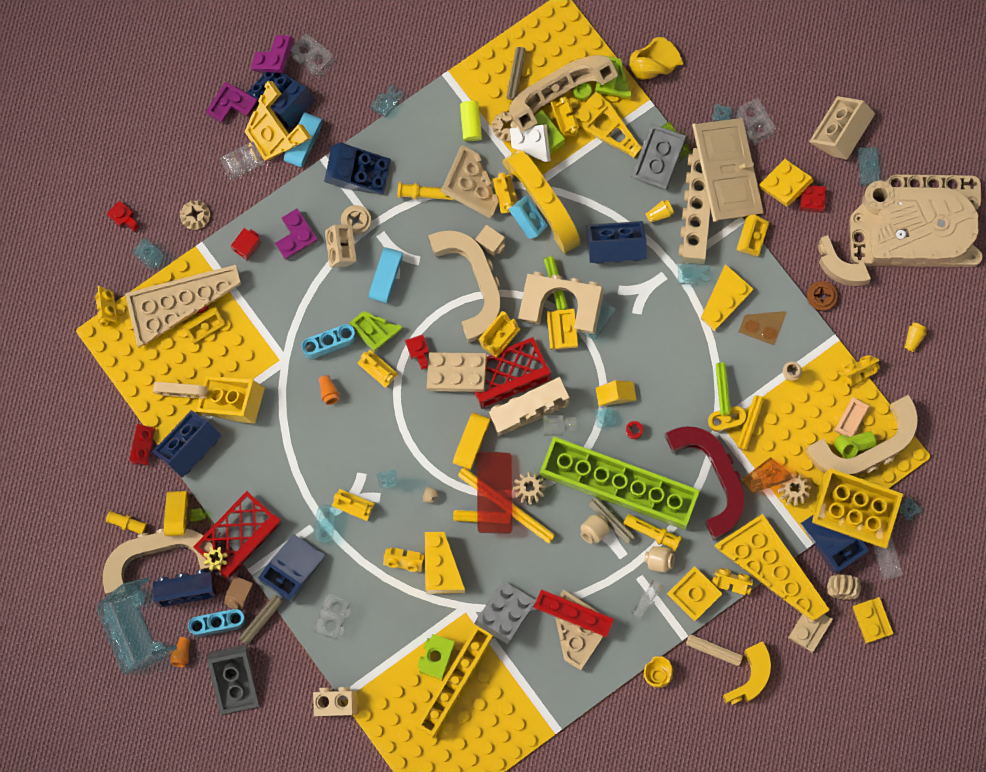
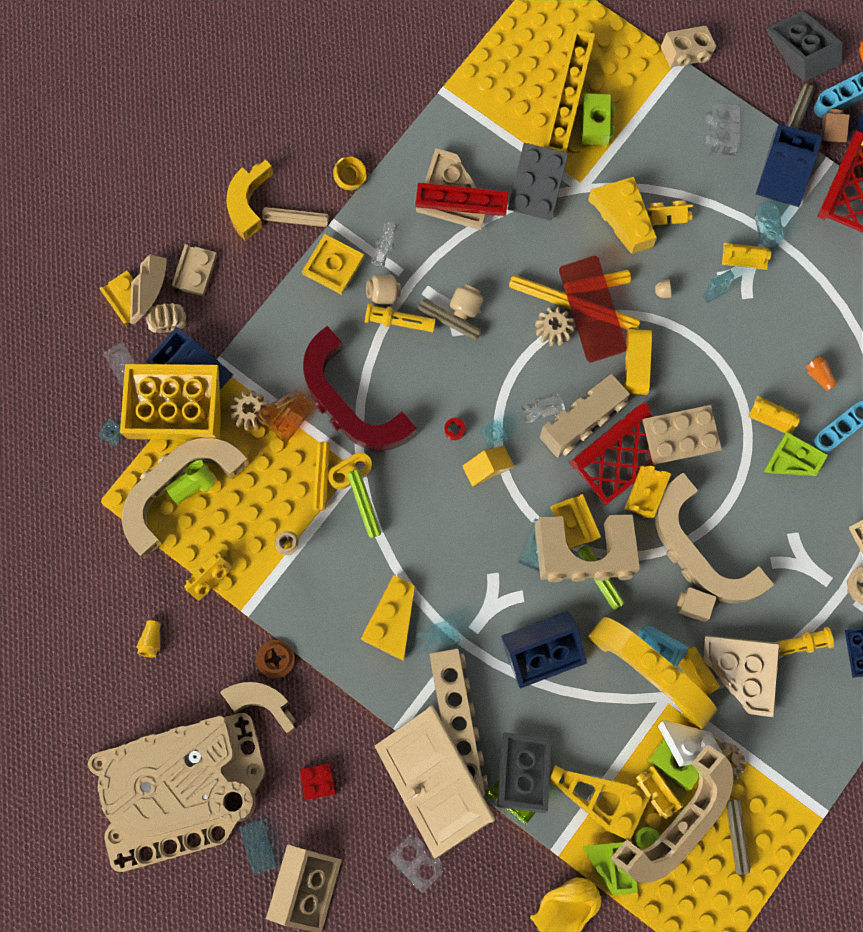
camera: 160 degrees right, 0 degrees up
(385, 275) = (806, 527): medium azure beam -> none
(418, 349) = (736, 452): red plate -> none
(470, 121) = (772, 754): neon yellow brick -> none
(619, 483) = (453, 357): lime brick -> none
(660, 211) = (500, 705): yellow cone -> none
(717, 109) = (467, 857): clear light blue plate -> none
(725, 578) = (285, 292): yellow hinge -> none
(752, 235) = (379, 709): yellow slope -> none
(763, 326) = (337, 601): clear orange wing -> none
(767, 559) = (259, 323): yellow wing -> none
(786, 182) = (356, 790): yellow plate -> none
(851, 418) = (203, 516): light nougat tile -> none
(854, 615) = (146, 286): none -> tan slope

